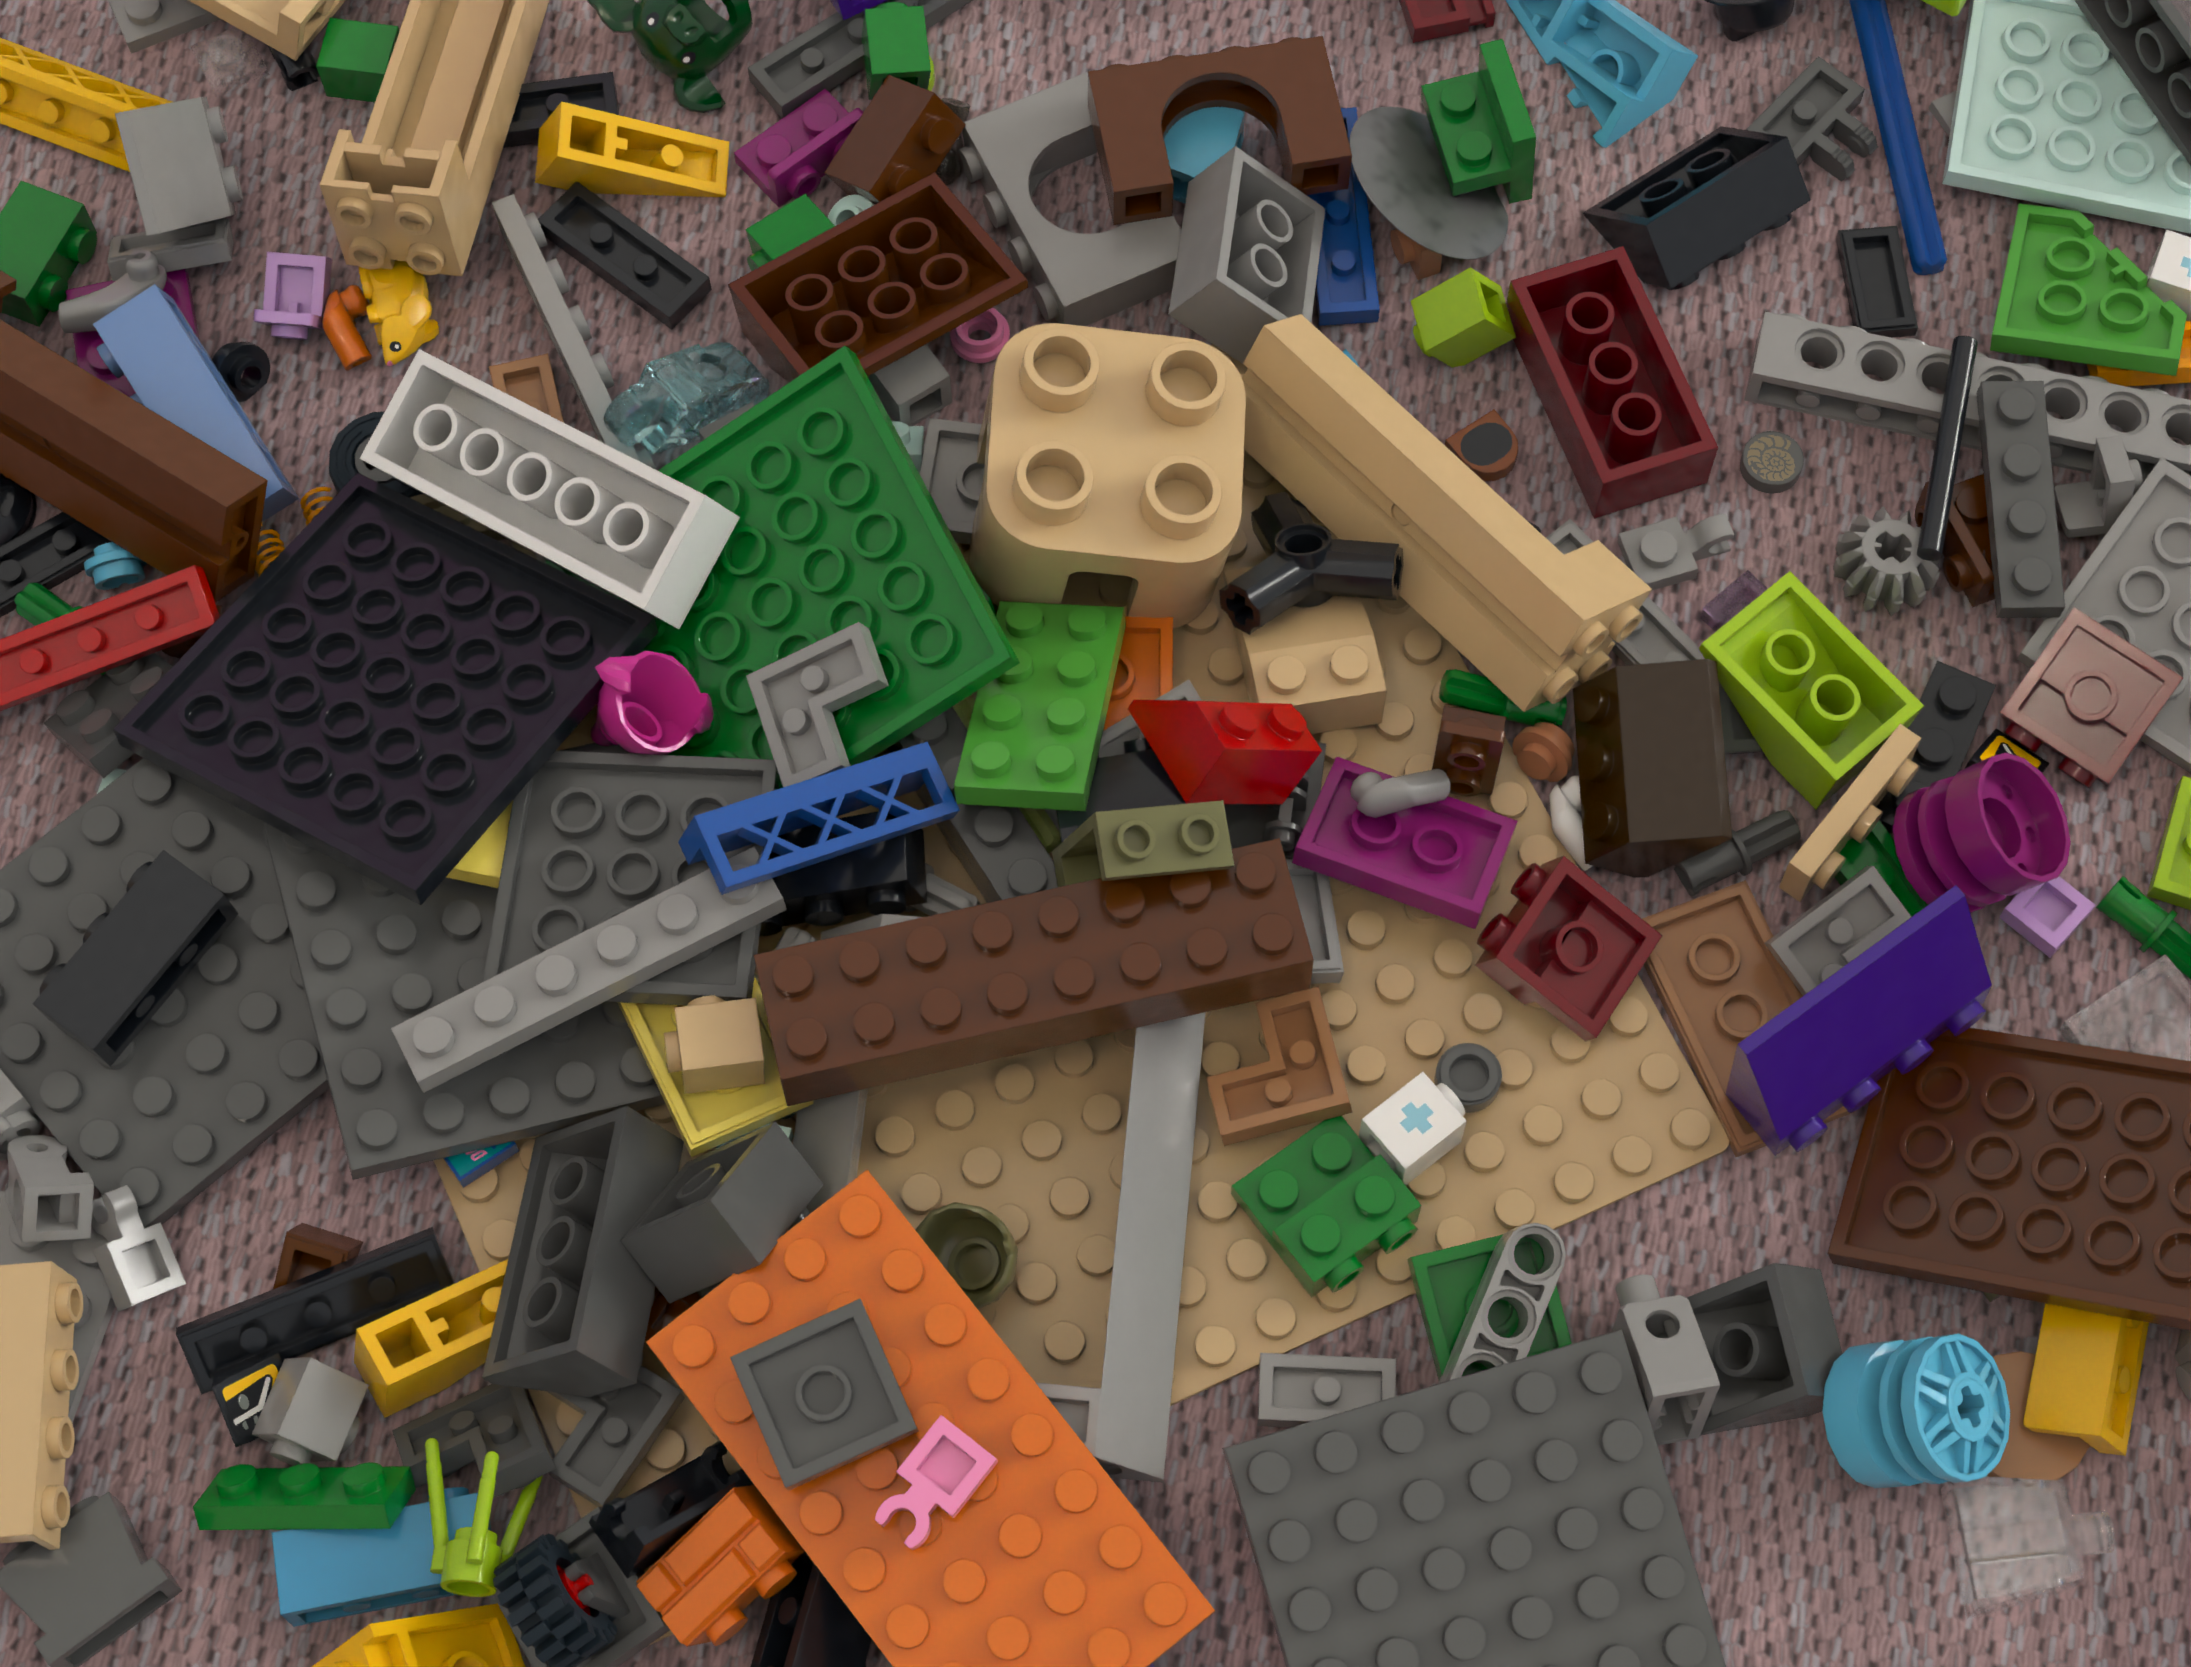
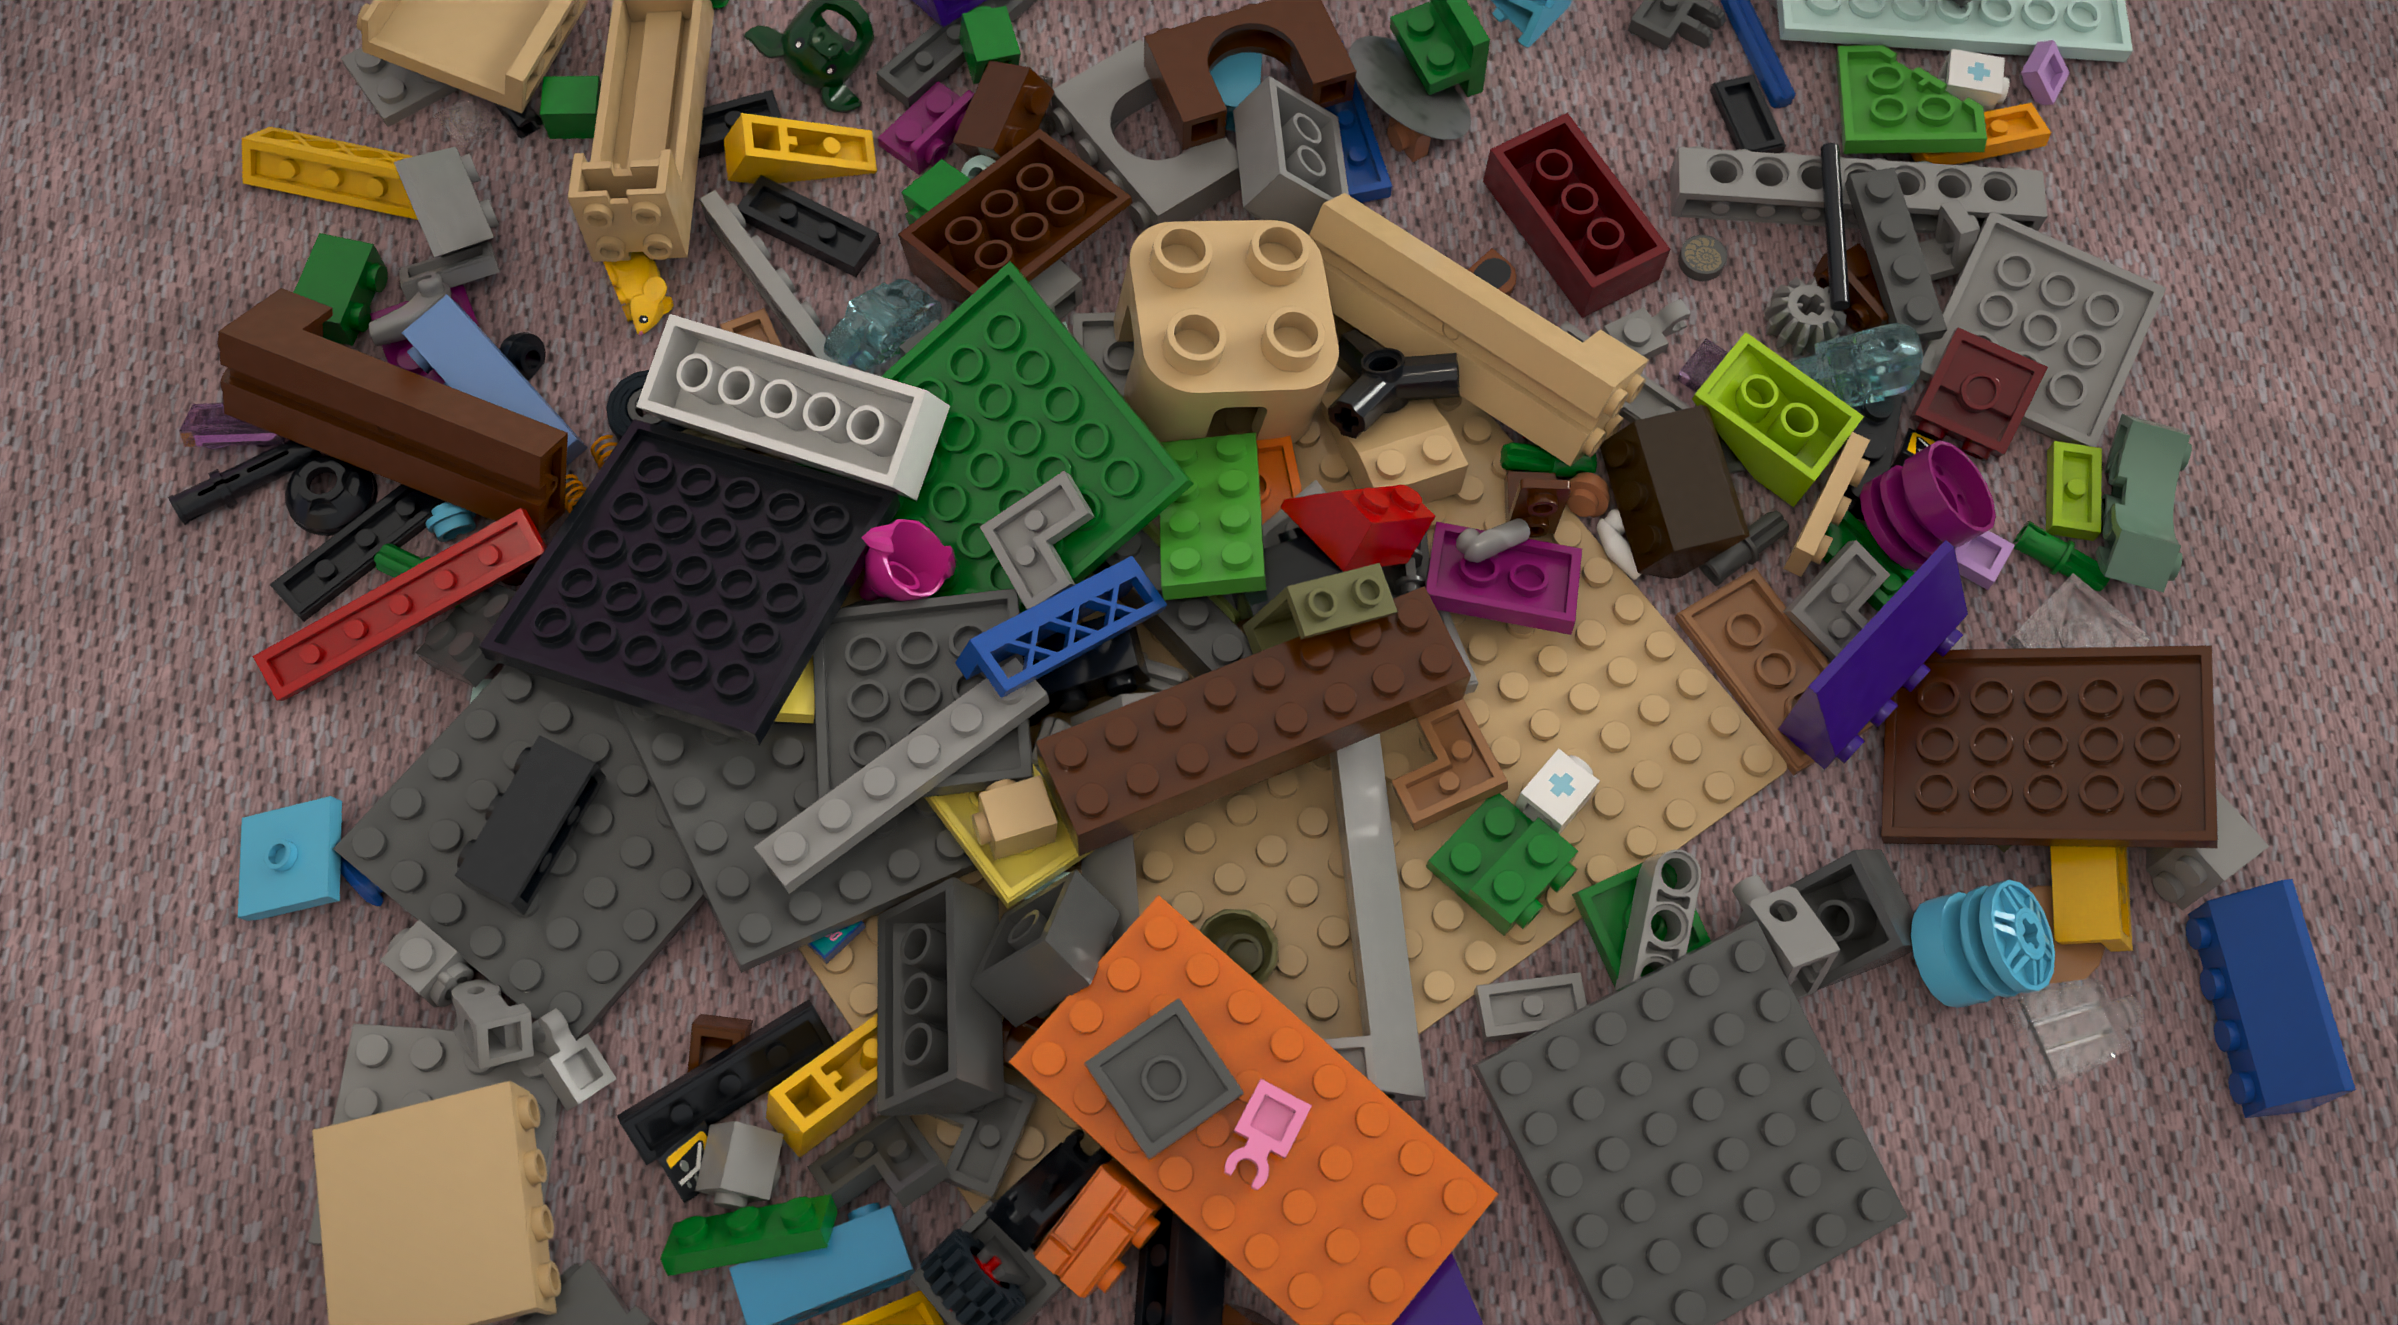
camera: 15 degrees left, 0 degrees up
(294, 294) = (555, 291): lavender bracket -> none
(341, 328) = (596, 313): orange arm -> none
(472, 1556) = (899, 1258): lime plant -> none
(981, 350) = (1100, 258): bright pink plate -> none
(1462, 319) = (1455, 184): lime brick -> none
(1471, 1074) = (1588, 743): dark grey tile -> none
(1566, 946) = (1640, 636): dark red plate -> none
(1702, 204) = (1612, 76): black slope -> none
(1943, 637) = (1866, 363): none -> clear light blue piece

